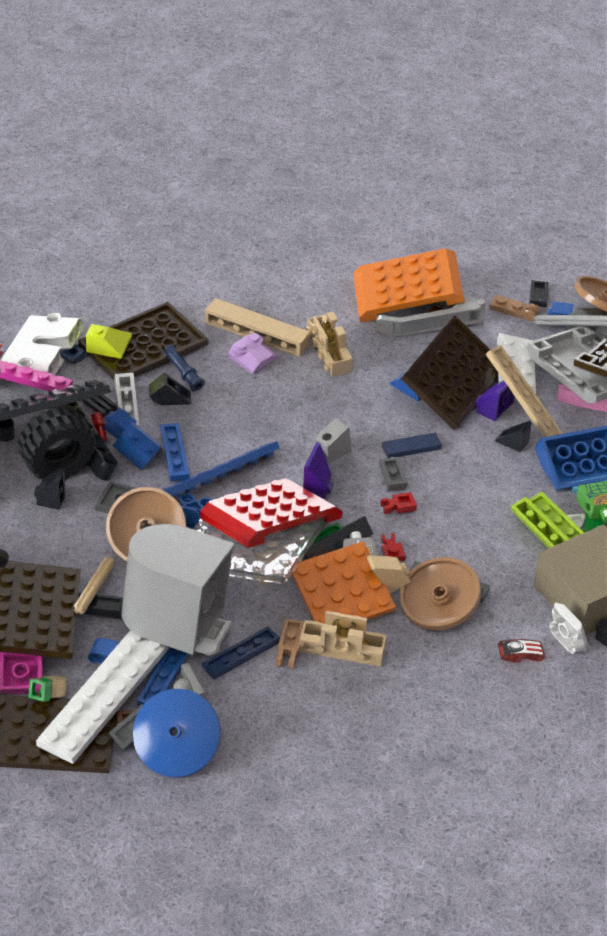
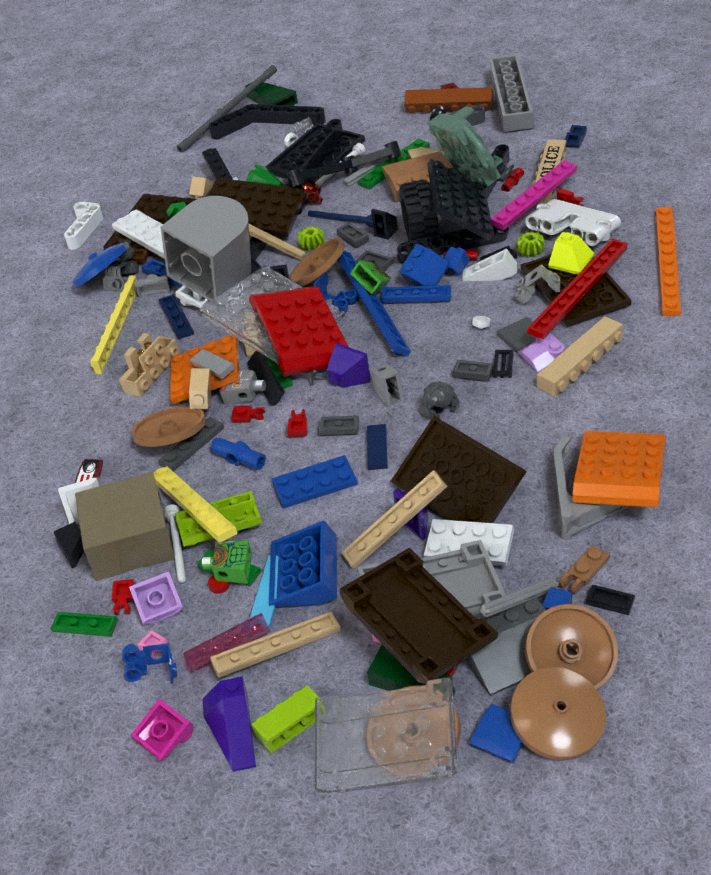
camera: 115 degrees right, 0 degrees up
(34, 511) = (368, 220): none -> dark blue piece
(59, 804) = (88, 218): none -> white beam
(65, 522) = (352, 234): none -> dark grey plate
(78, 373) = (530, 244): none -> lime gear
(79, 555) = (311, 238): none -> lime gear
(90, 288) = (668, 262): none -> orange plate
(157, 365) = (526, 285): none -> light grey piece
(160, 480) = (372, 279): none -> bright green torso
(166, 326) = (577, 289): none -> red plate
(169, 391) = (494, 294): black slope -> none
(188, 373) = (516, 306): dark blue pin -> none
(213, 399) = (481, 322): none -> white tile
(226, 371) = (516, 334): none -> dark grey tile
(273, 381) = (503, 373): none -> black tile
(283, 699) = (114, 326): none -> light yellow plate
(289, 641) = (183, 341): medium nougat hinge -> none
(290, 394) = (473, 370): none -> dark grey plate
(330, 343) = (538, 397): tan piece -> none
(345, 406) = (439, 395): none -> dark grey helmet
(351, 564) = (217, 365): none -> light grey tile
(455, 535) = (238, 453): none -> blue piece
(471, 479) = (314, 481): none -> blue plate
(516, 436) = (356, 521): black slope -> none
(545, 538) = (194, 504): none -> light yellow plate

